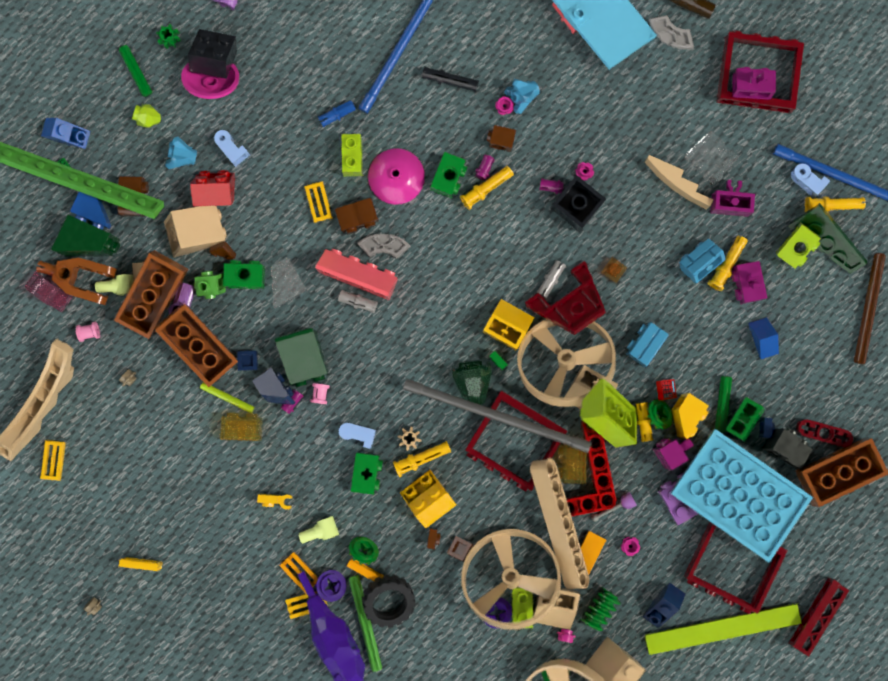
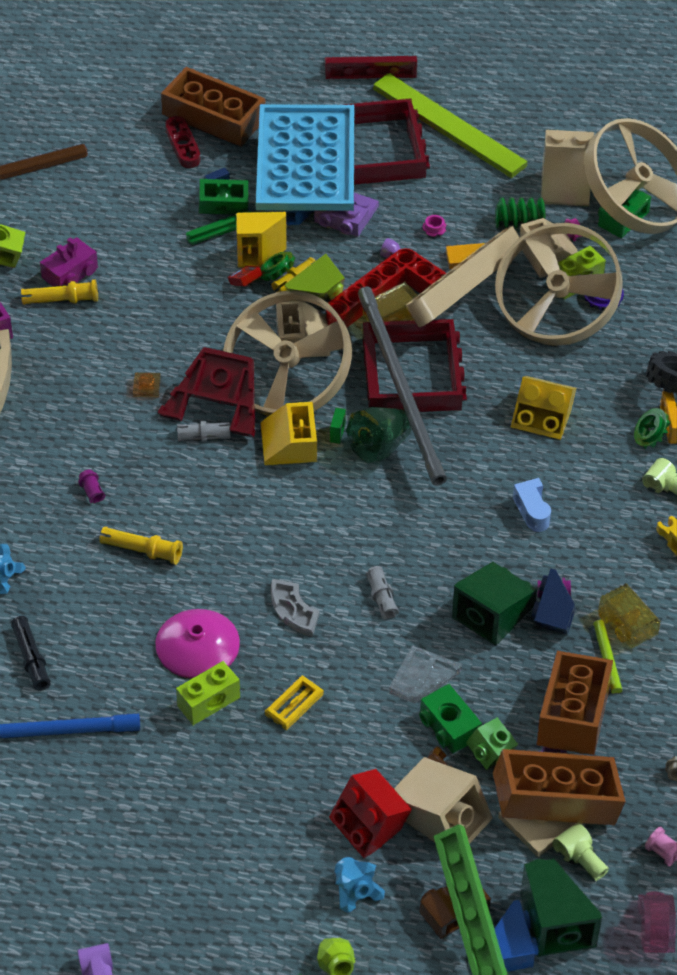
camera: 125 degrees left, 35 degrees down
(73, 266) = (625, 905): dark orange piece -> none
(209, 86) = (213, 900): dark pink dish -> none
(212, 53) = (192, 917): black brick -> none
(225, 143) = (301, 838): light blue leg -> none
(247, 360) = (543, 657): dark blue plate -> none
(319, 393) = (522, 564): bright pink bush -> none
(337, 113) = (165, 745): blue axle -> none
(356, 216) = (279, 648): reddish brown brick -> none
(356, 274) = (351, 601): coral slope -> none
(359, 483) = (569, 473): green brick -> none
(412, 442) = (494, 456): tan gear -> none
(412, 462) = (516, 441): yellow pin -> none
(434, 538) = (582, 378): reddish brown plate -> none
(452, 164) = (156, 585): green brick -> none
(459, 549) = (569, 352): reddish brown plate -> none
(484, 168) = (118, 559): magenta pin -> none
(501, 138) = (69, 558): reddish brown brick -> none
(509, 105) = (22, 576): dark pink plate -> none
(578, 203) = (96, 444): black brick -> none
(588, 167) = (49, 471): dark pink plate -> none
(646, 344) = (208, 313): dark azure brick -> none
(664, 605) = (467, 170): dark blue slope -> none
(671, 452) = (310, 230): magenta brick -> none
(702, 260) = (76, 311): dark azure brick -> none
(764, 337) = (118, 229): blue slope -> none
(788, 447) = (223, 152): pearl dark grey brick -> none

